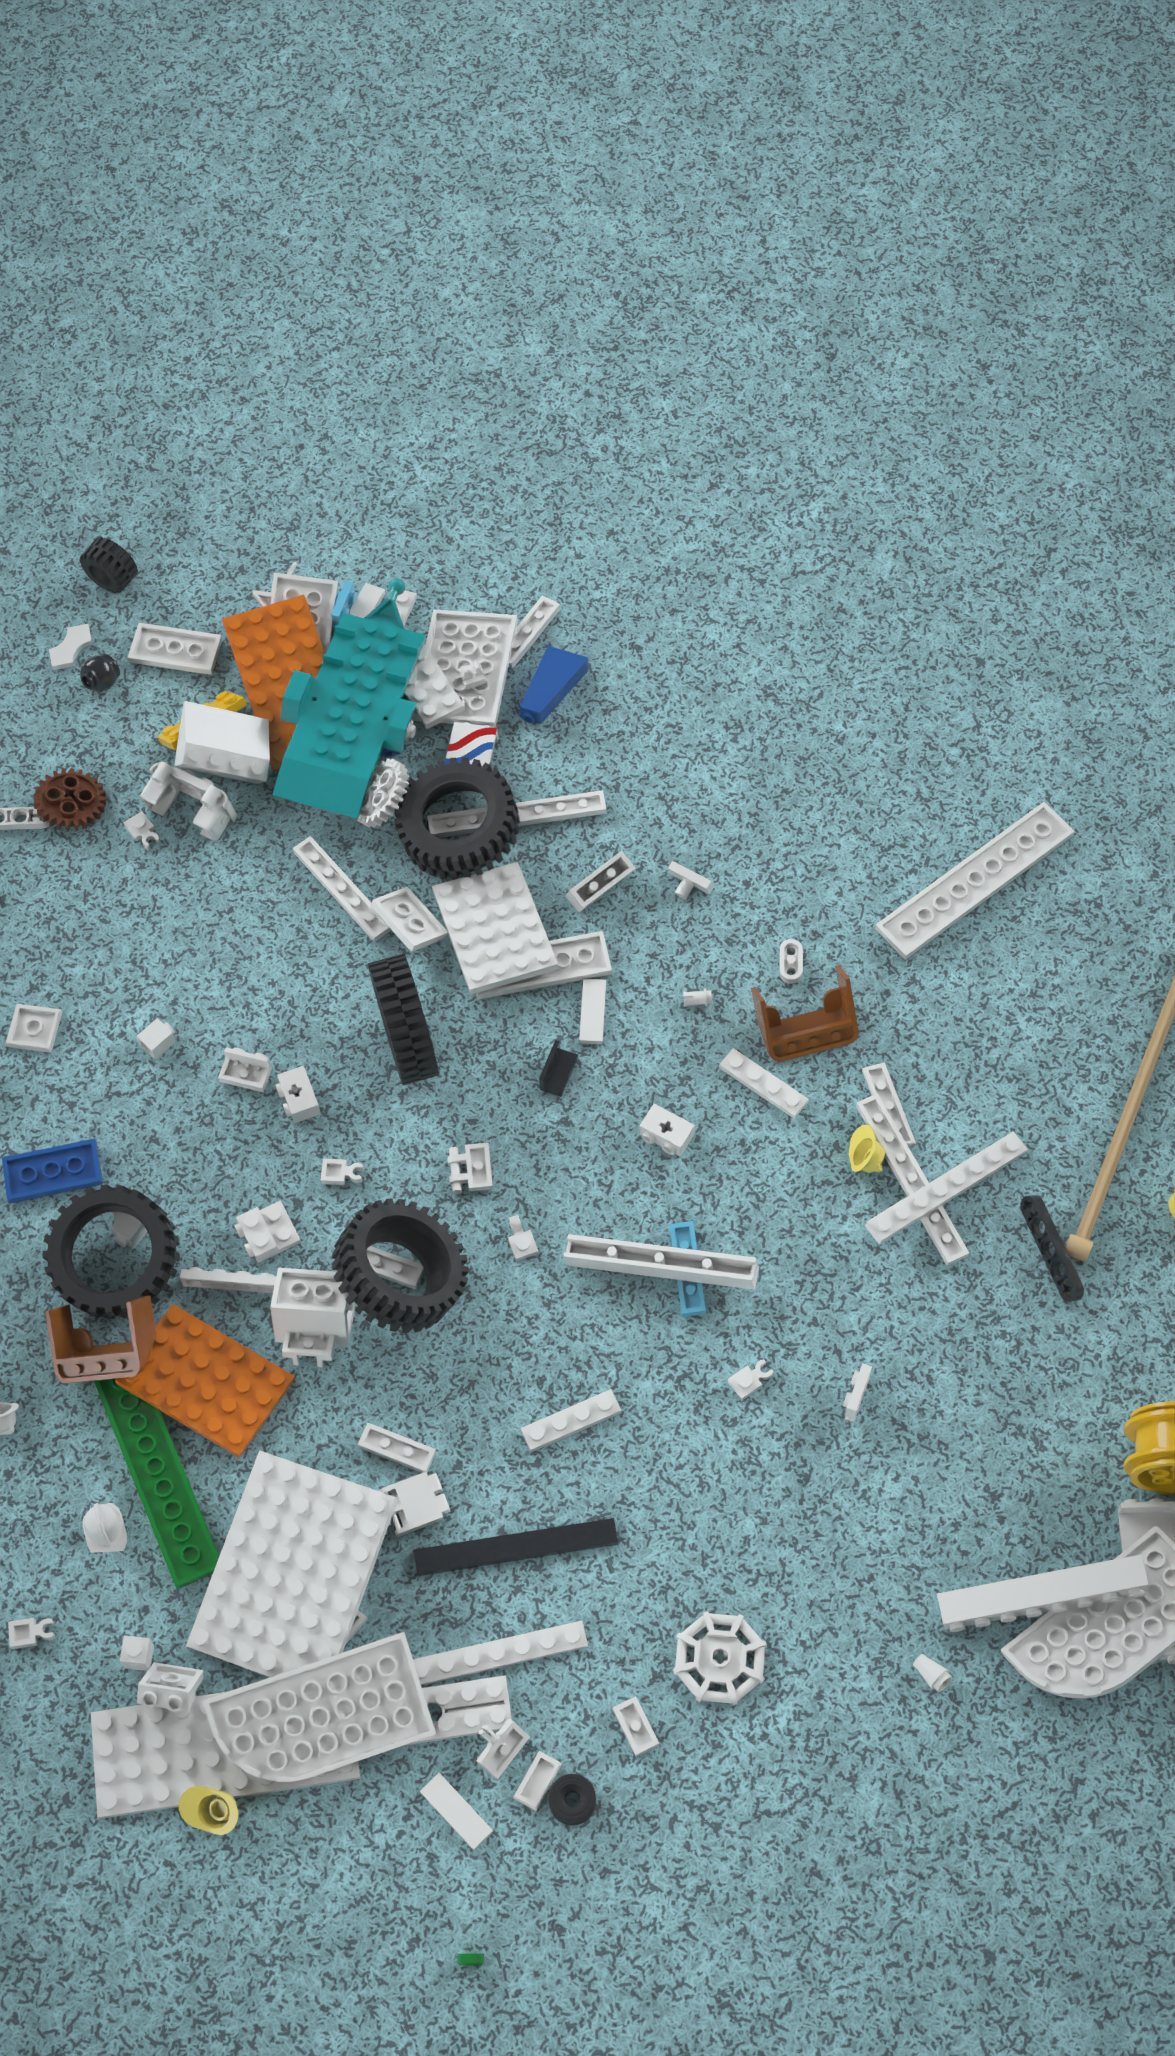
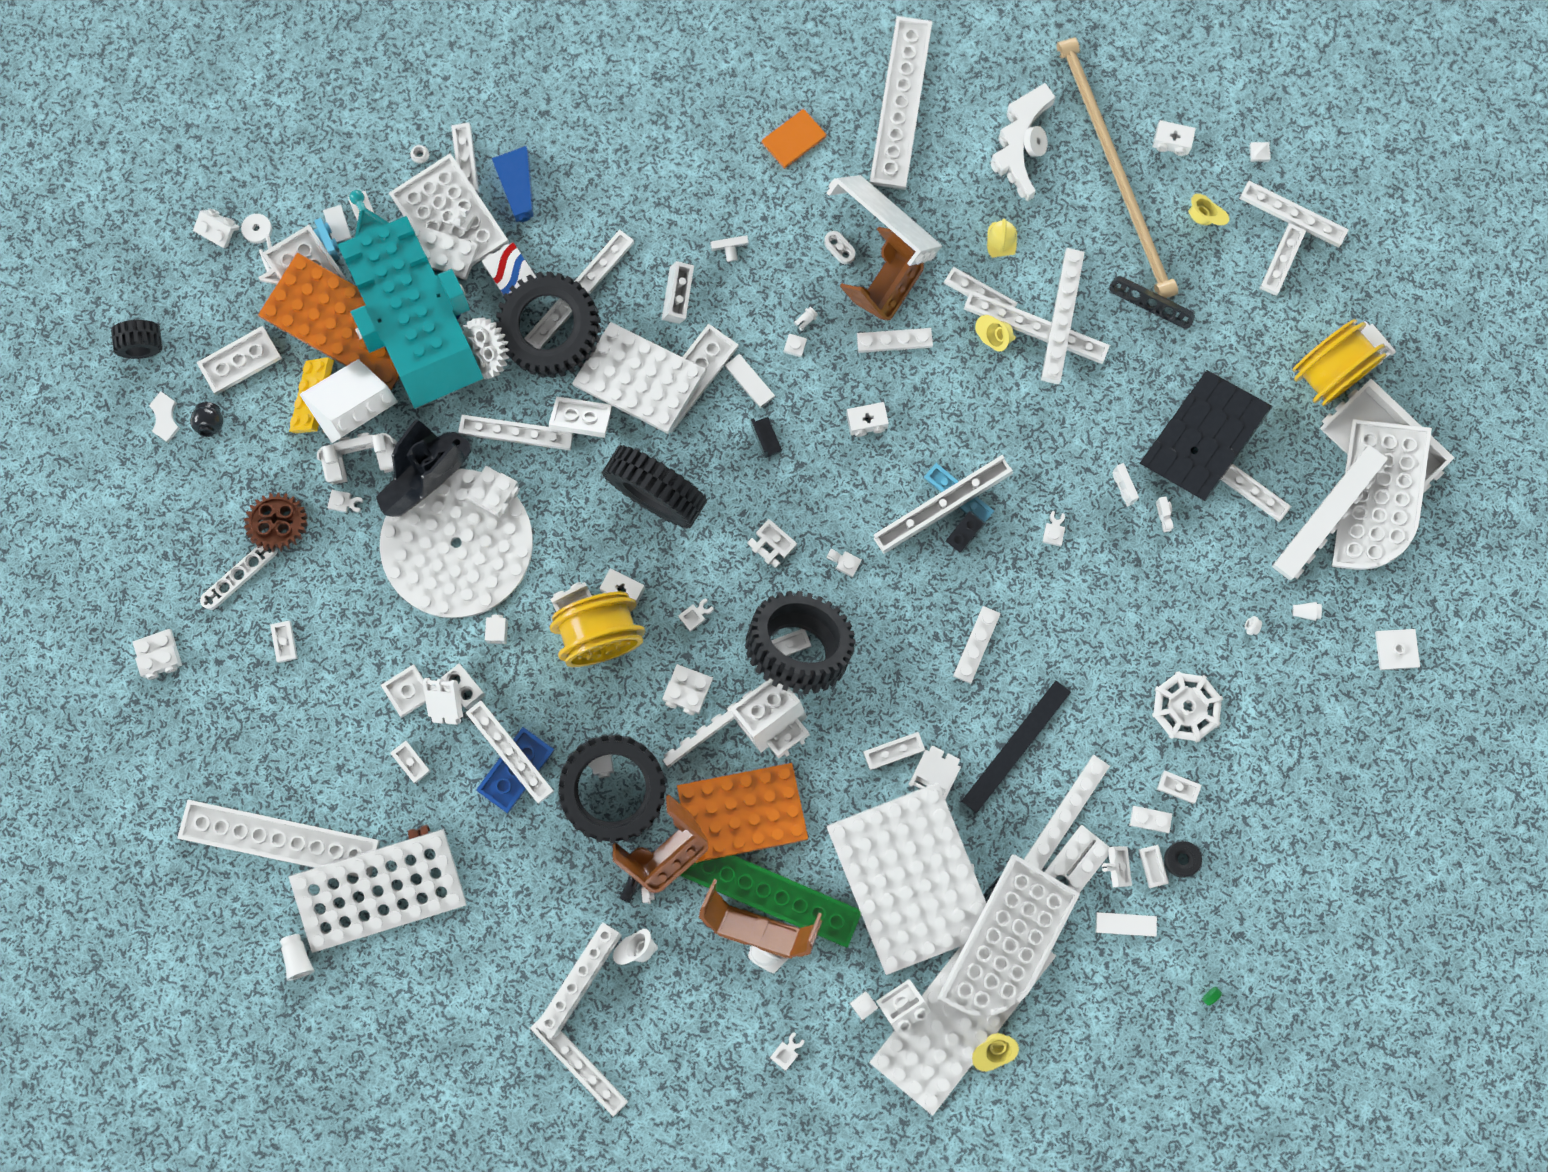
camera: 45 degrees left, 15 degrees up
(39, 1361) = (628, 891): none -> black pin
(50, 1057) = (443, 701): none -> white plate
(50, 1380) = (647, 896): none -> white plate
(60, 1147) = (509, 752): none -> white plate
(83, 1062) = (466, 684): none -> white brick
(107, 1486) = (756, 929): none -> windscreen
(190, 981) = (462, 579): none -> white plate
(232, 845) = (420, 467): none -> black piece
(233, 1100) = (597, 629): none -> yellow wheel
(264, 529) = (215, 227): none -> white bracket
(270, 919) = (493, 491): none -> white plate
(294, 549) = (253, 221): none -> white piece
(493, 594) = (419, 149): none -> white plate
(578, 1733) = (1150, 819): none -> white plate
(658, 1305) = (965, 532): none -> black brick
(665, 1014) = (795, 345): none -> white plate
(842, 836) = (794, 138): none -> orange tile
(857, 963) = (889, 214): none -> white panel
(861, 1637) = (1253, 625): none -> white plate
(877, 1450) = (1164, 510): none -> white plate
(957, 1075) = (1001, 239): none -> light yellow piece
(987, 1415) = (1216, 421): none -> black piece
(988, 1512) = (1256, 493): none -> white tile
(993, 1794) = (1397, 649): none -> white plate
(1065, 1007) = (1035, 141): none -> white piece
(1085, 979) = (1011, 158): none -> white arch

